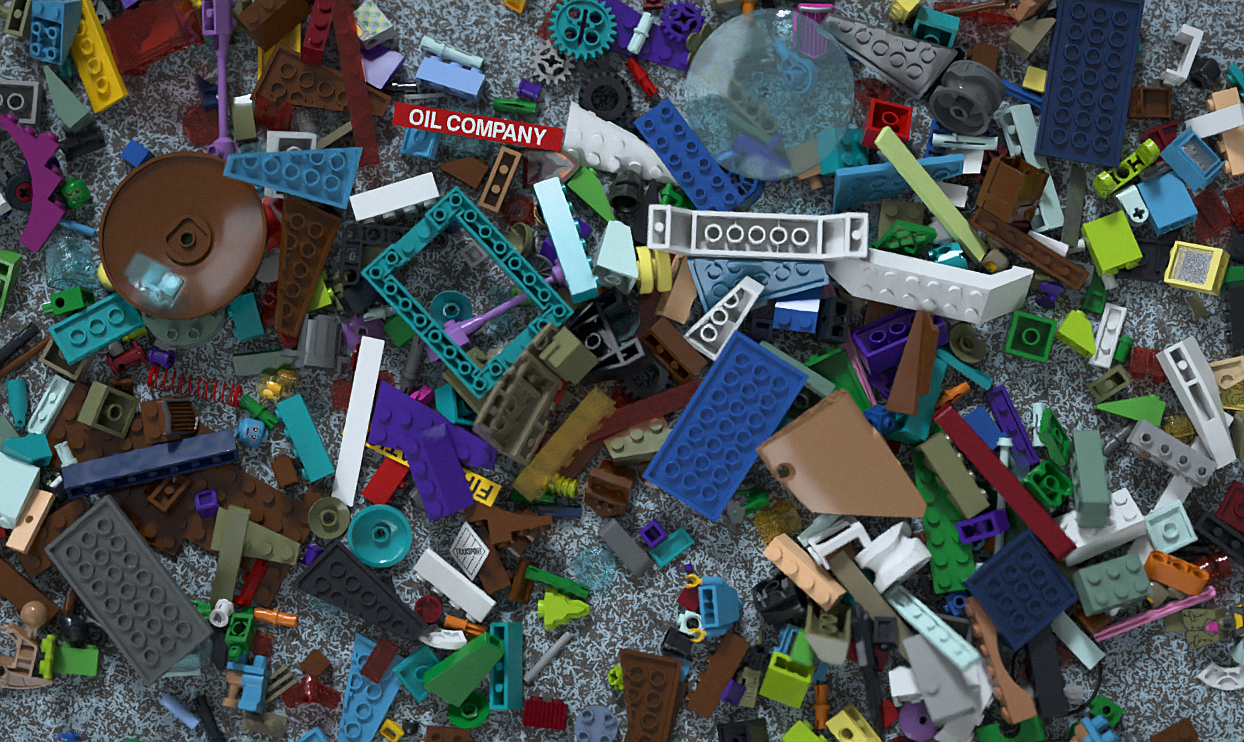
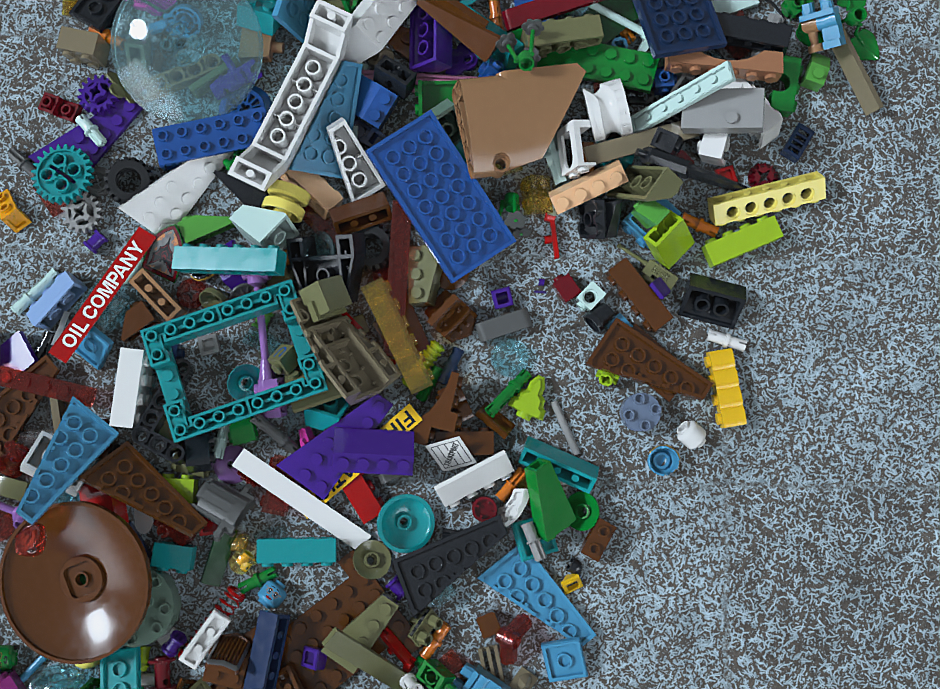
camera: 65 degrees left, 0 degrees up
(153, 278) = (94, 625): clear light blue brick -> none
(180, 386) = (204, 639): none -> white tile
(206, 177) = (31, 540): none -> clear red piece
(284, 598) = (422, 627): none -> olive hips
(285, 471) = (317, 579): reddish brown brick -> none
(379, 660) = (509, 568): clear red tile -> none
(417, 672) = (533, 541): none -> light grey axle
(491, 339) = (284, 359): none -> olive brick
(514, 106) = (103, 259): green pin -> none
(545, 714) = (611, 449): dark red brick -> none
(626, 192) = (215, 198): pearl dark grey helmet -> none
(641, 77) = (128, 147): red pin -> none
(671, 547) = (519, 288): teal tile -> none
(717, 606) = (584, 269): dark azure torso -> none
(738, 558) = (548, 239): none -> red piece
(758, 657) = (640, 255): black gear -> none
(910, 724) = (742, 159): medium lavender dish -> none
(913, 452) = (529, 56): none -> plant
(983, 526) = (613, 27): dark purple brick -> none

